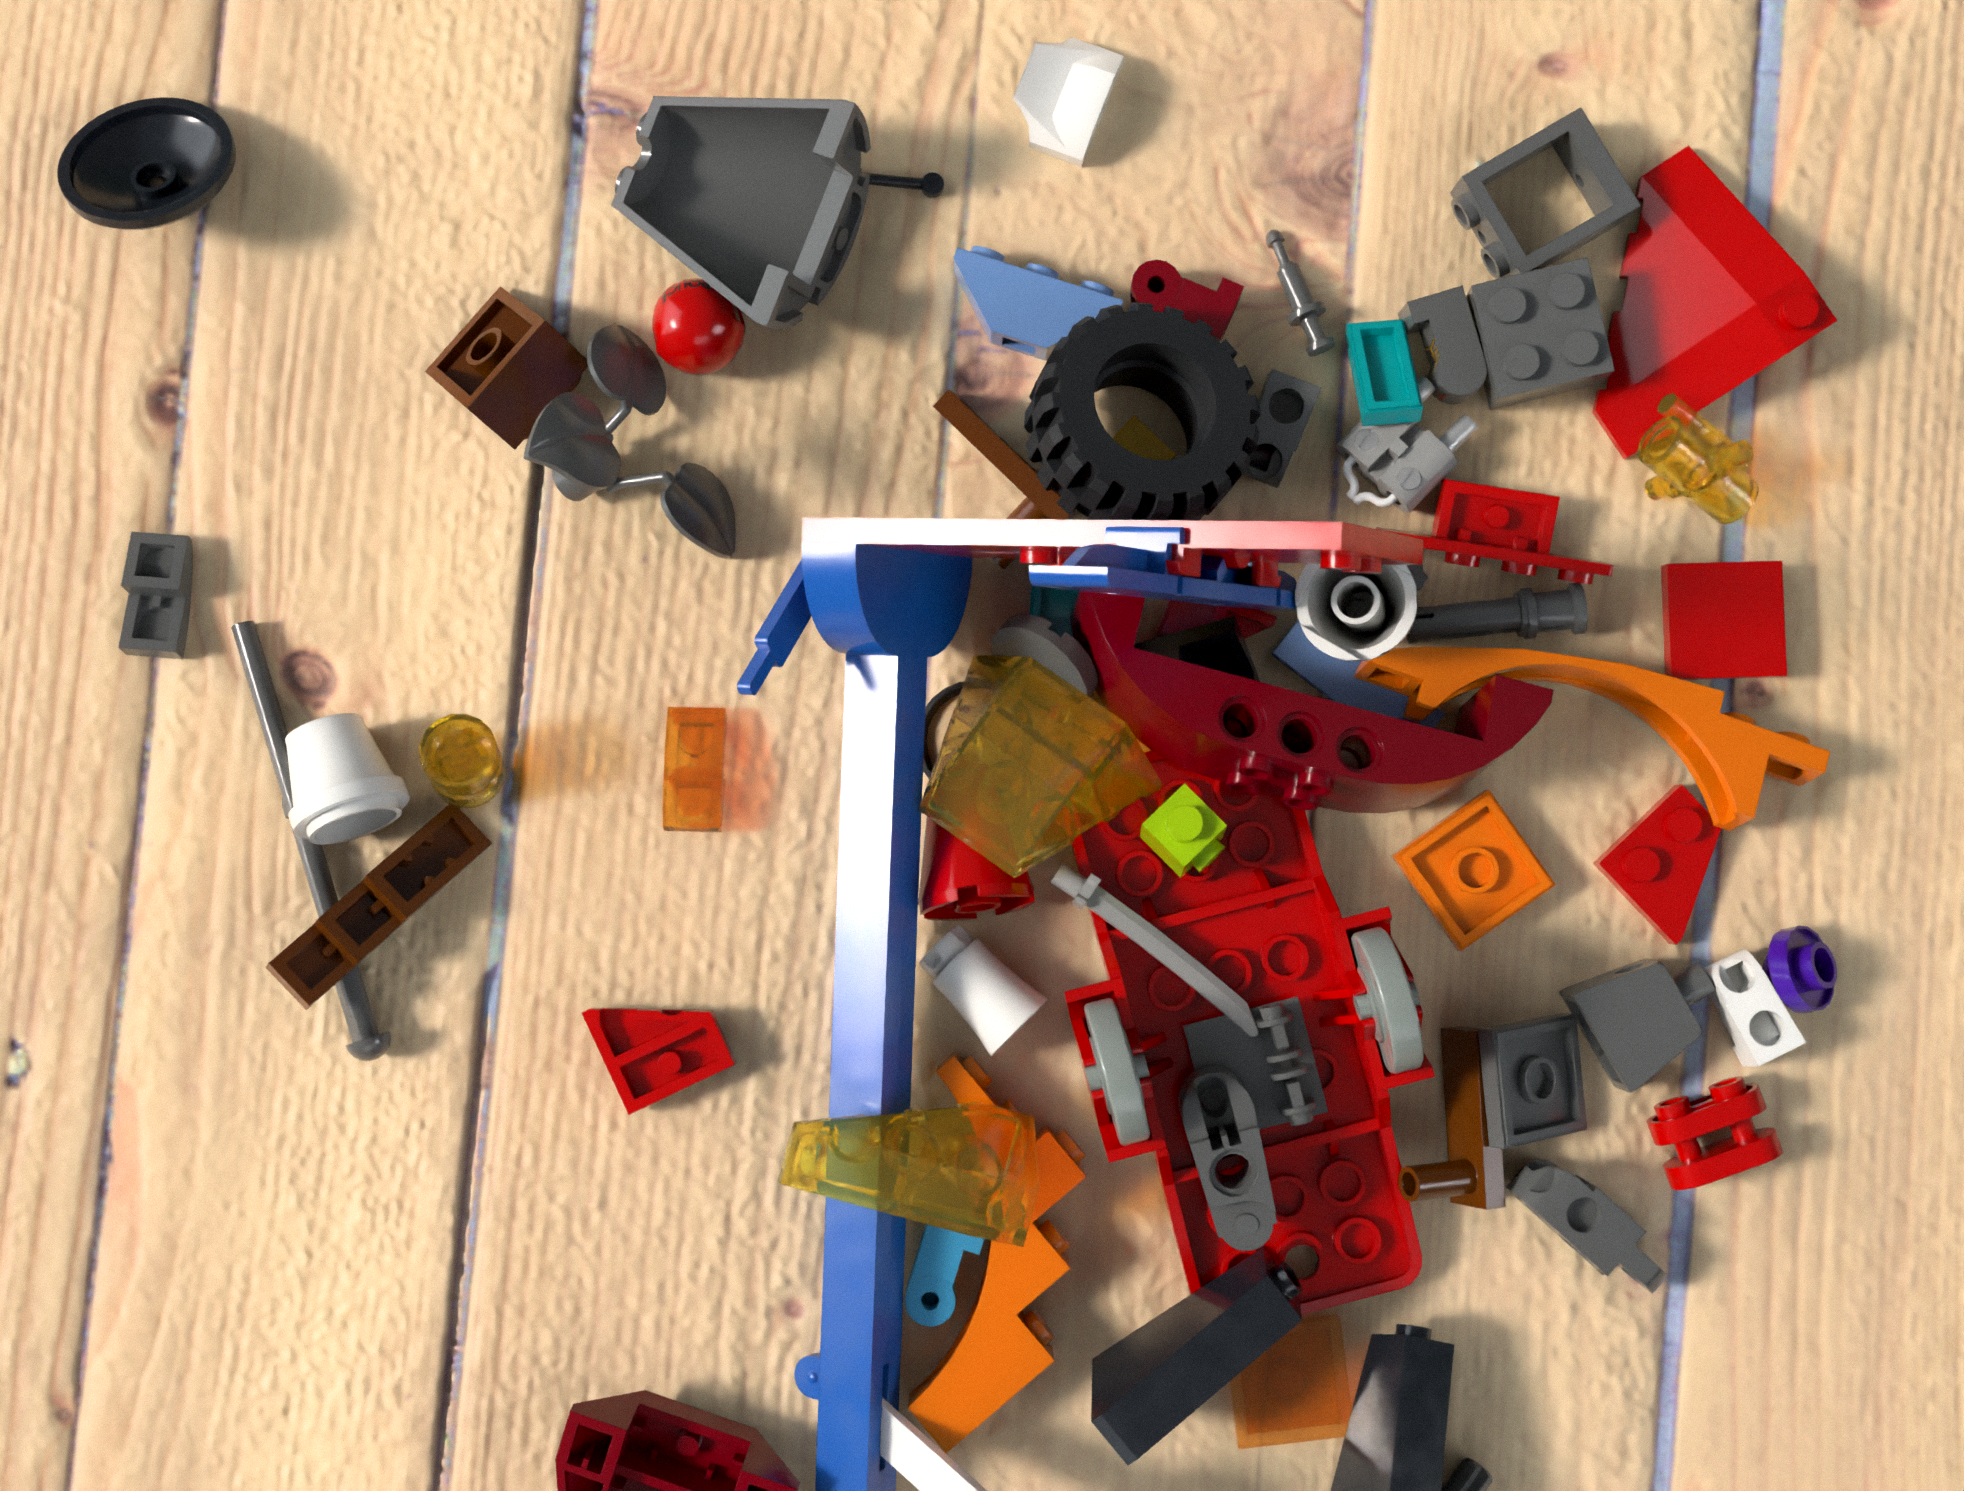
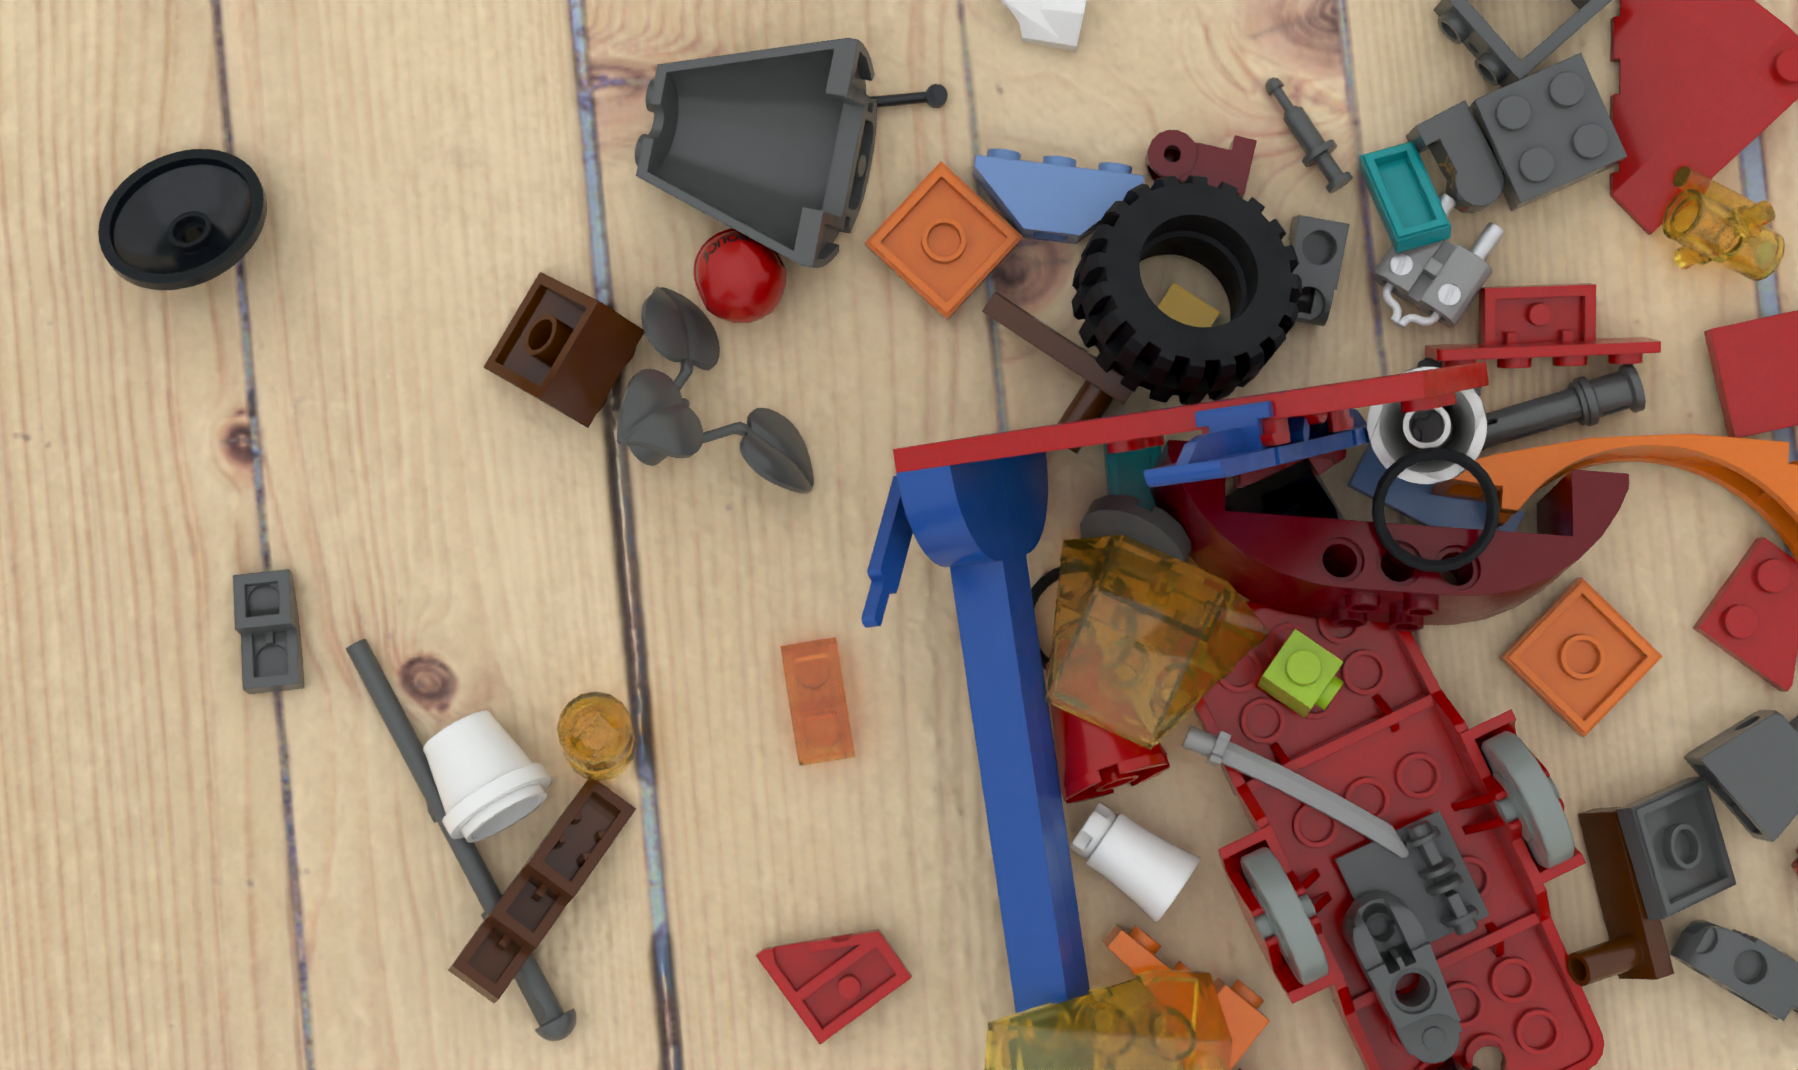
camera: 10 degrees left, 0 degrees up
(910, 330) = (943, 240): none -> orange plate
(1376, 736) = (1435, 454): none -> black tyre

